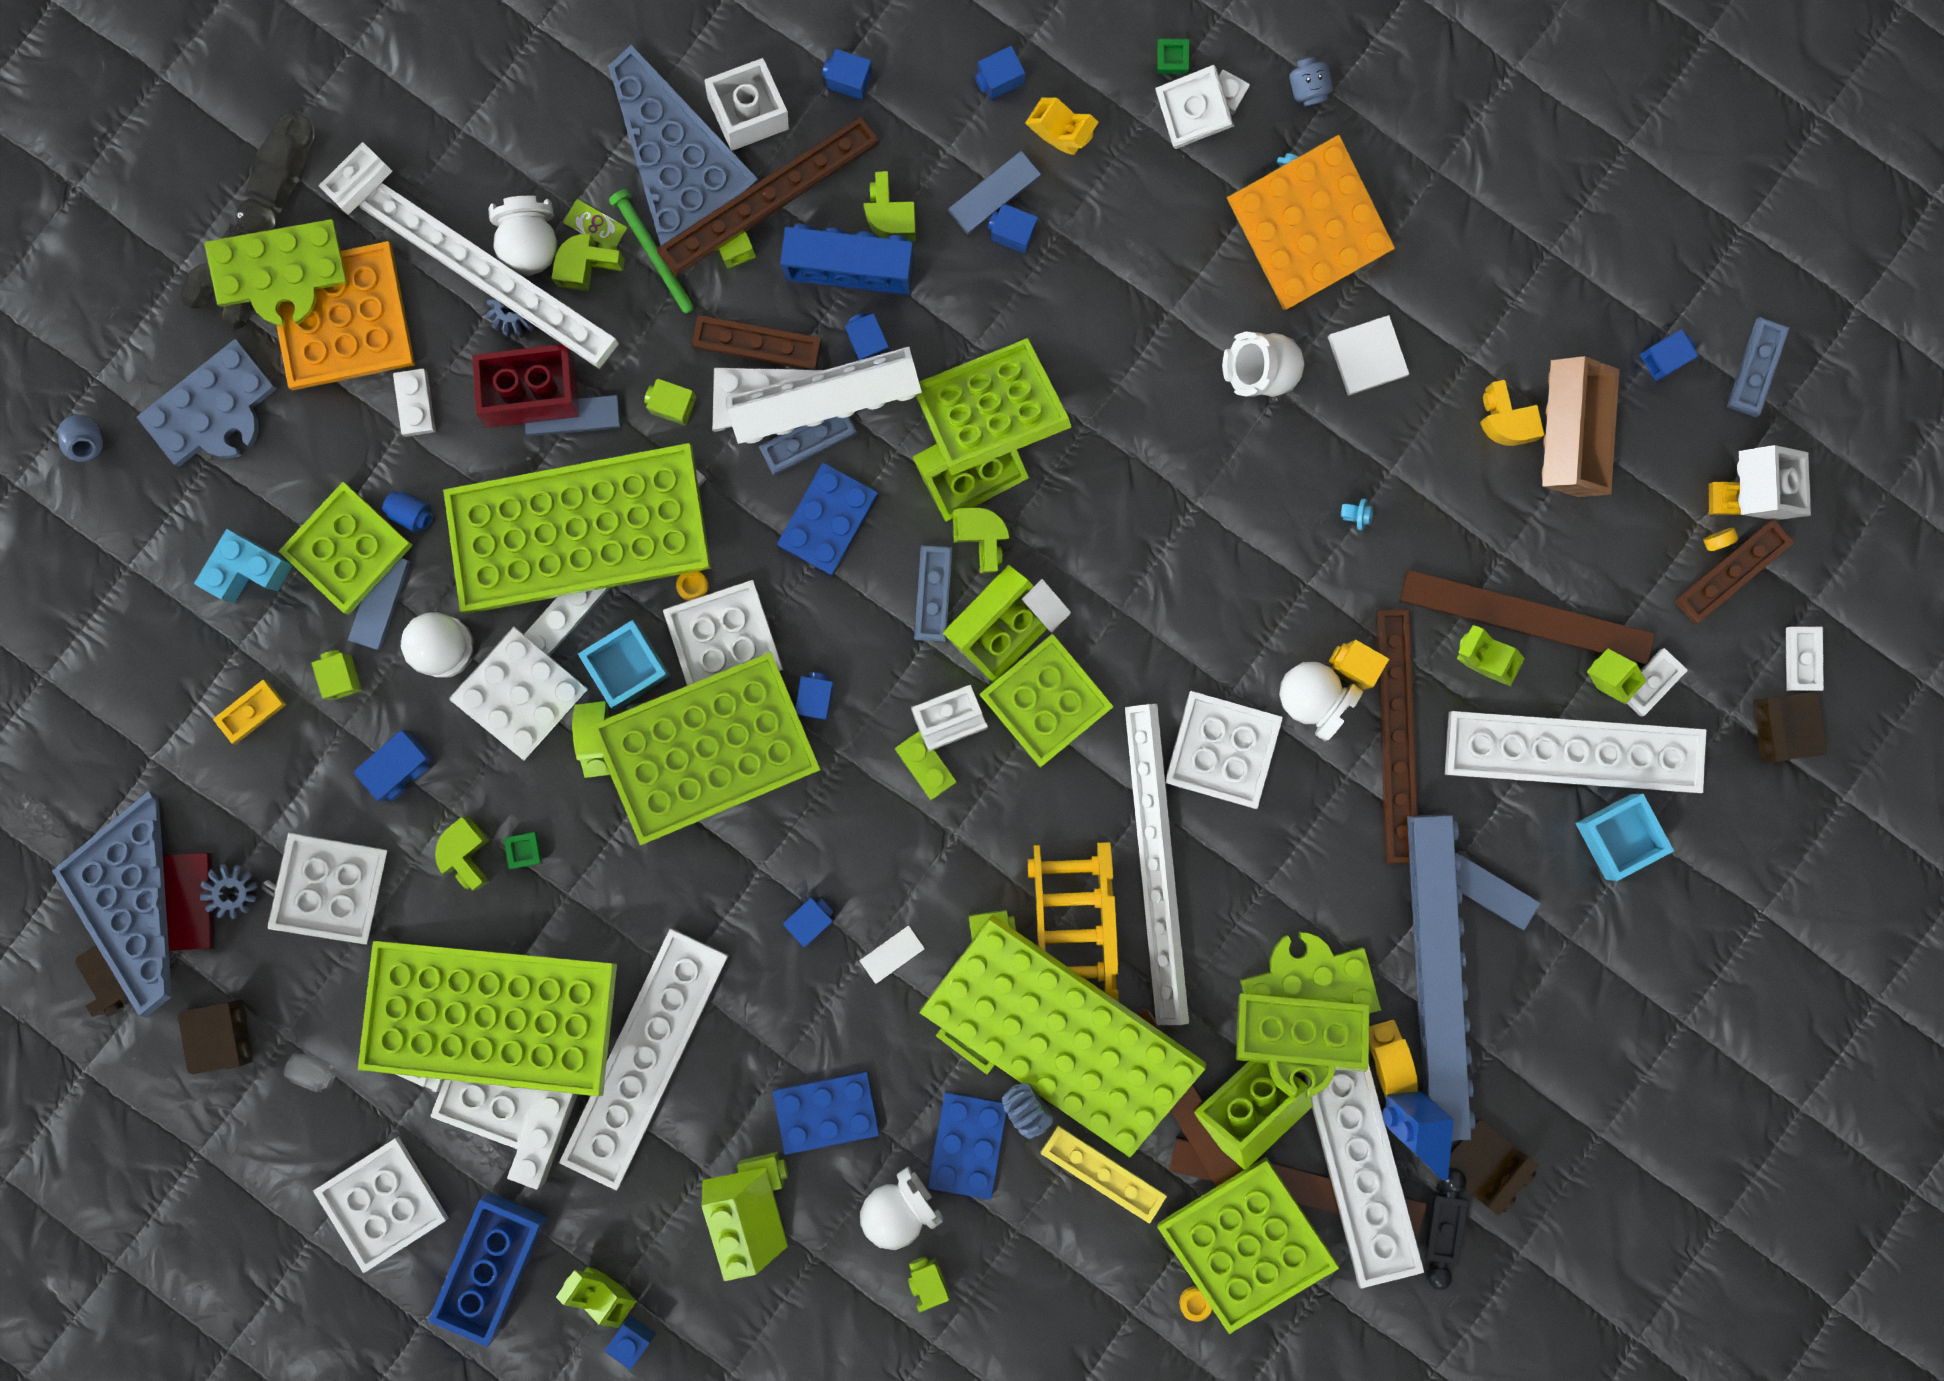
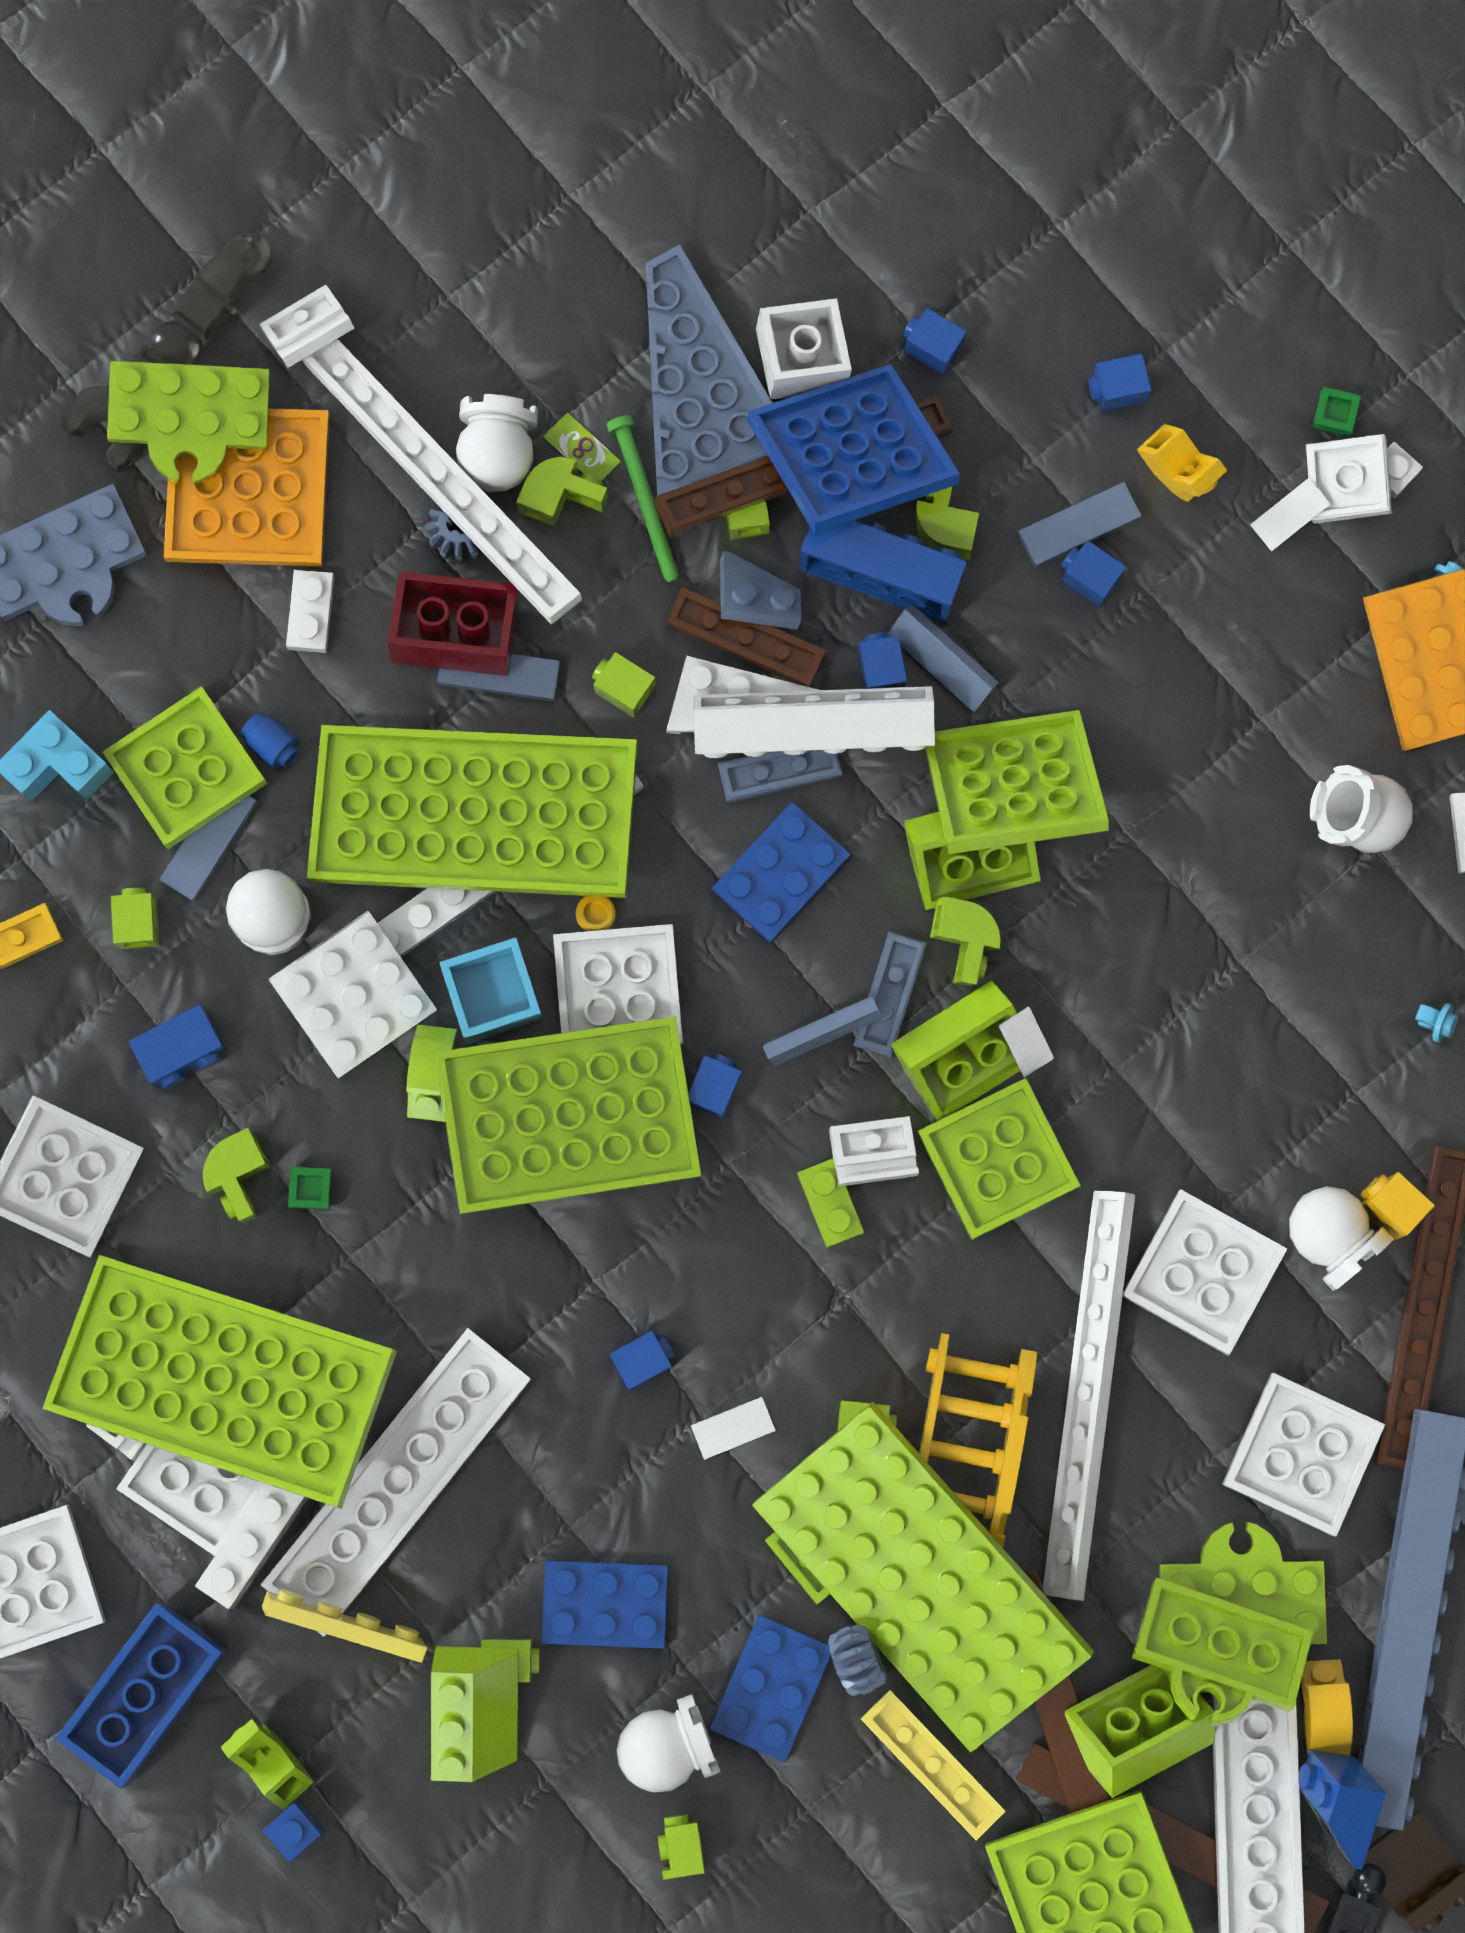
camera: 10 degrees right, 5 degrees down
(616, 1179) = (329, 1620): none -> light yellow plate
(757, 307) = (756, 595): none -> sand blue wing
(803, 173) = (853, 448): none -> blue plate
(888, 635) = (823, 1031): none -> sand blue tile
(913, 322) = (943, 658): none -> sand blue tile
(1155, 145) = (1290, 514): none -> white sticker
(1330, 871) = (1303, 1454): none -> white plate

